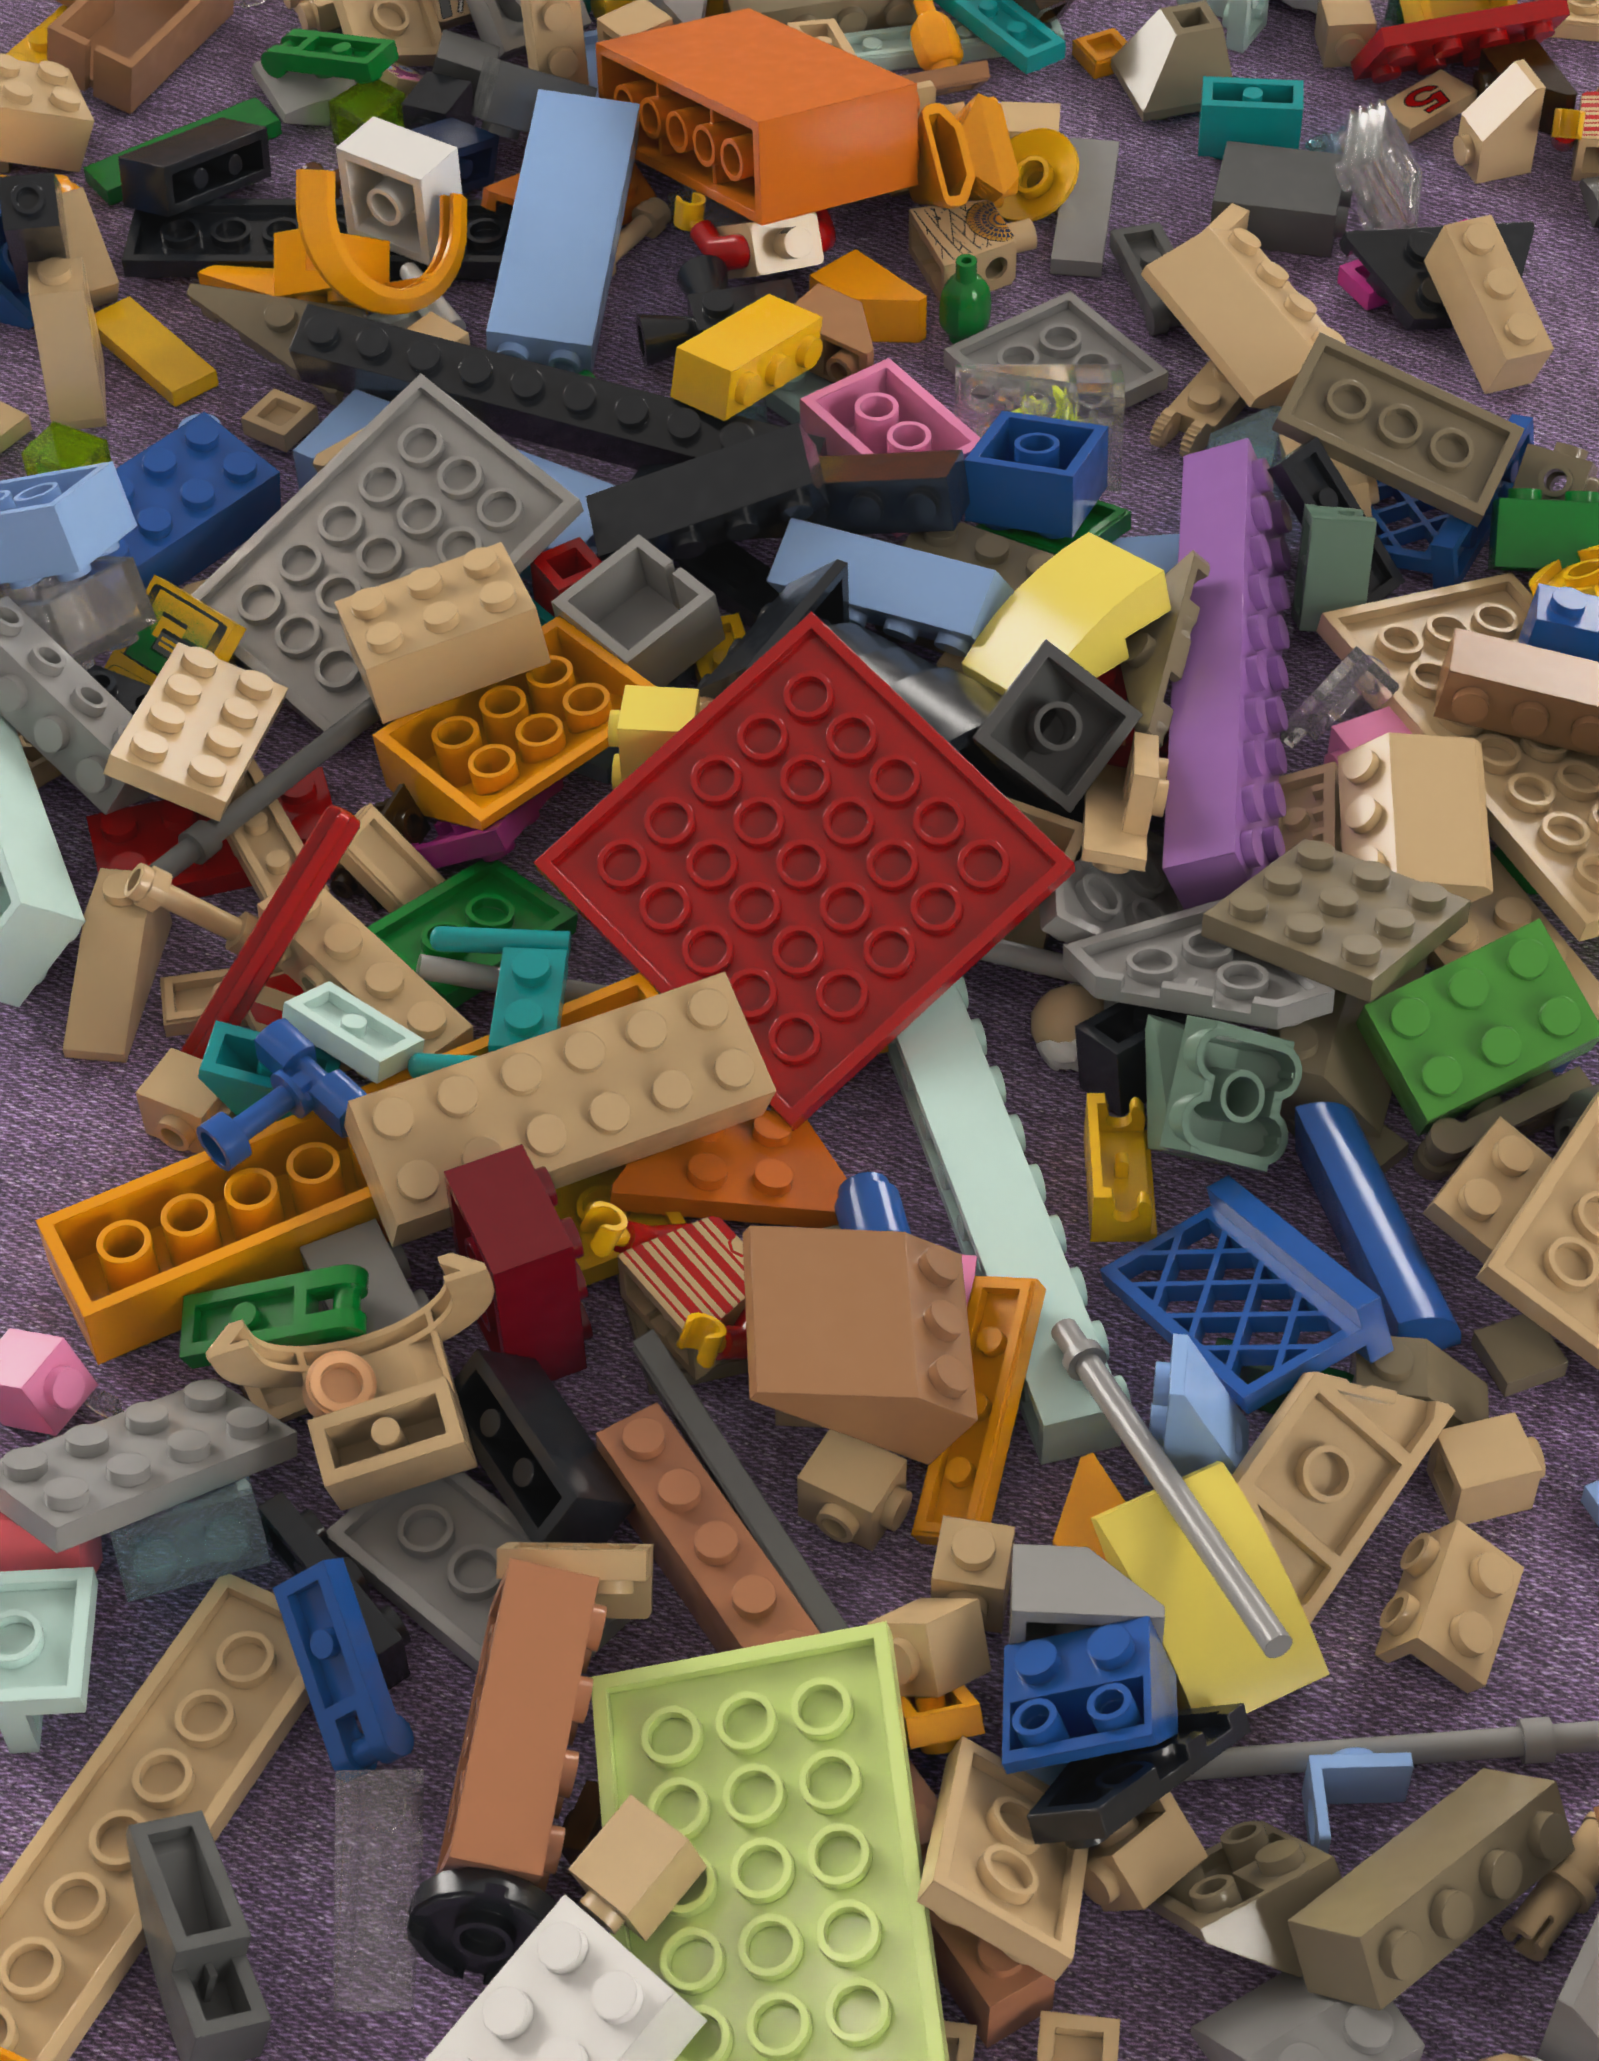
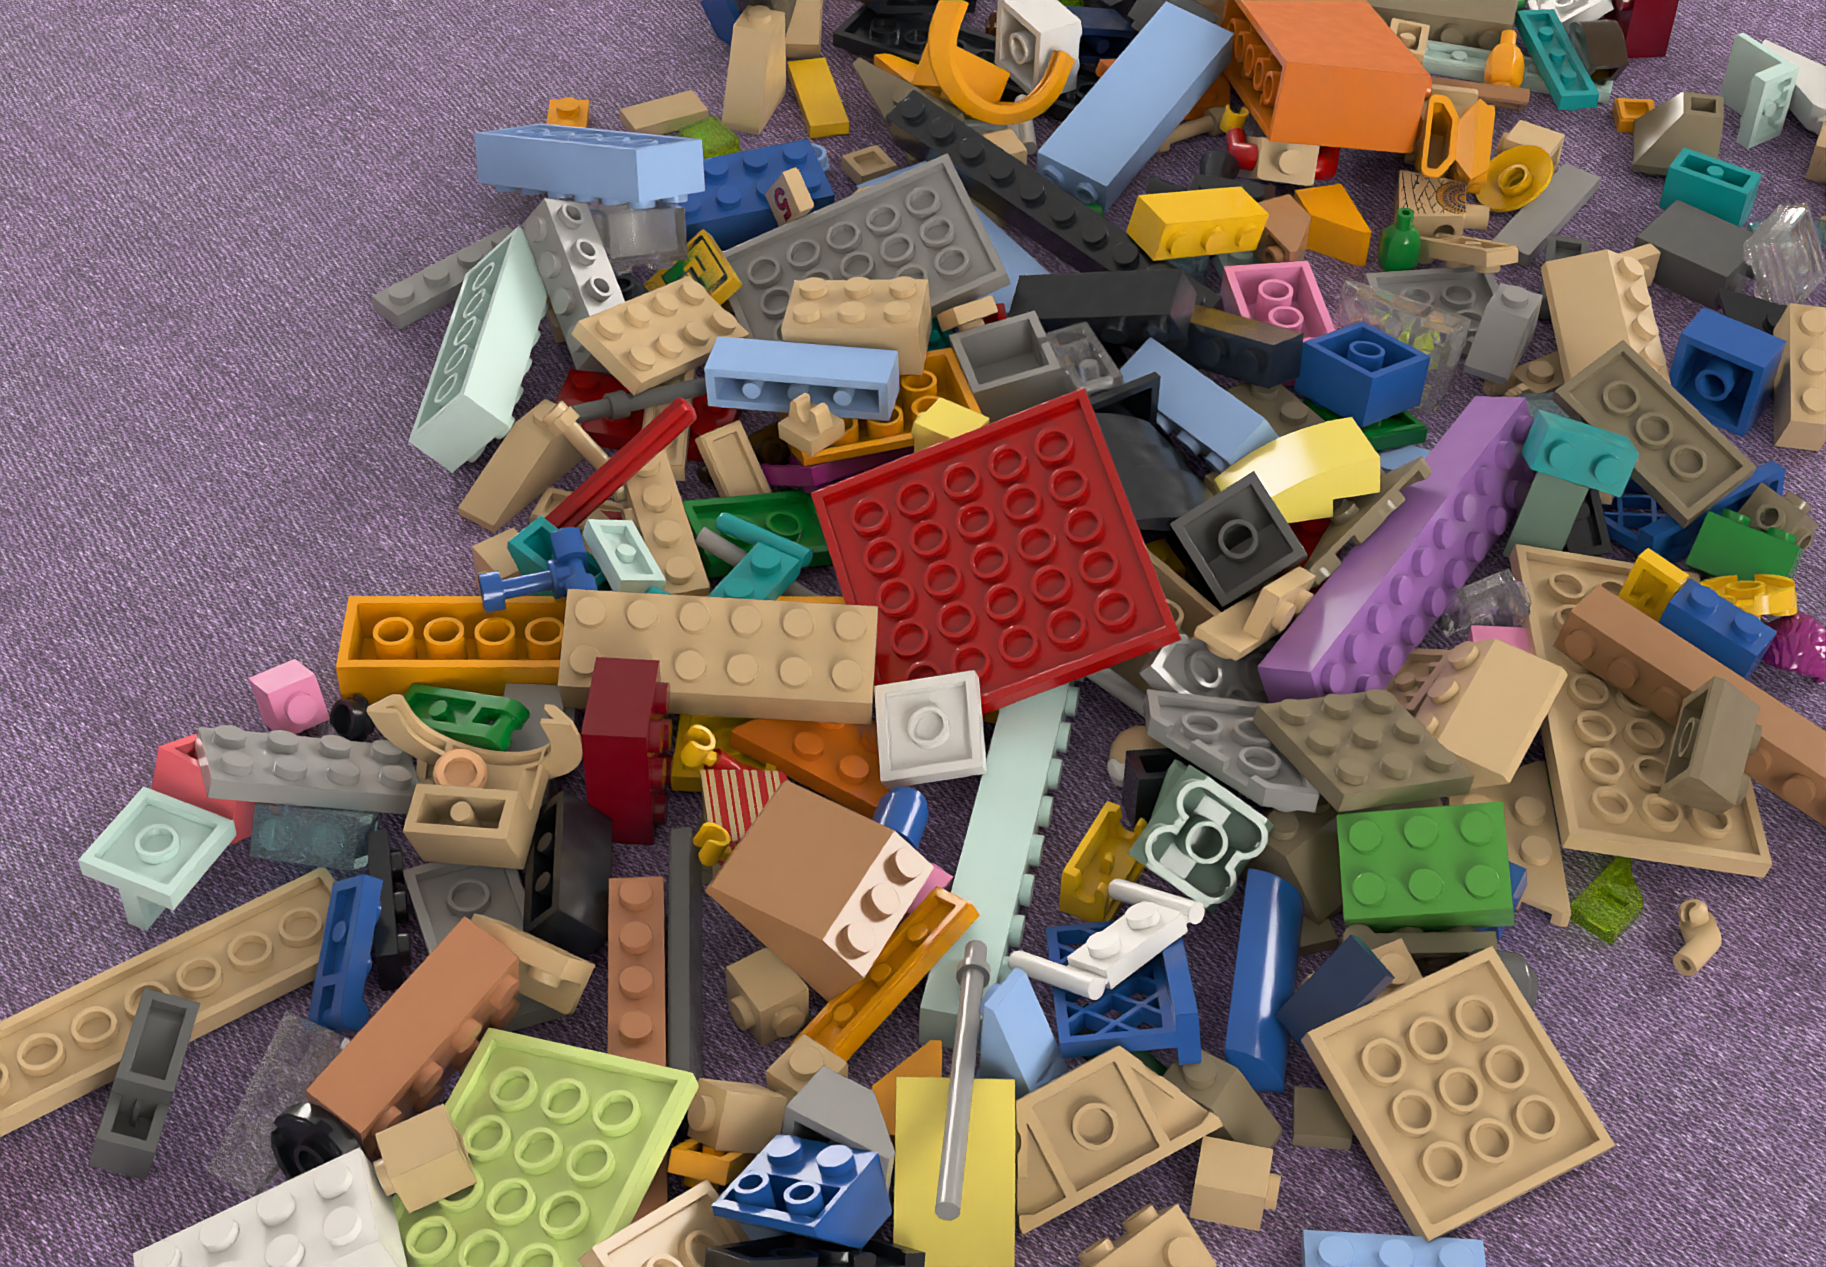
camera: 25 degrees right, 5 degrees down
(125, 1371) = (351, 719): none -> black plate
(246, 499) = (789, 197): none -> tan tile
(420, 722) = (773, 373): none -> light blue brick
(467, 778) = (810, 426): none -> tan tile
(559, 567) = (967, 315): none -> tan plate
(745, 582) = (1083, 360): none -> clear slope
(845, 1093) = (930, 729): none -> white plate
(1041, 283) = (1467, 251): none -> tan hinge
(1151, 368) = (1503, 333): none -> light grey slope
(1225, 1256) = (1122, 947): none -> white plate
(1346, 482) = (1579, 453): none -> teal brick
(1406, 317) = (1726, 369): none -> blue brick
(1481, 1209) = (1340, 985): none -> dark blue tile
(1501, 604) = (1652, 584): none -> yellow bracket

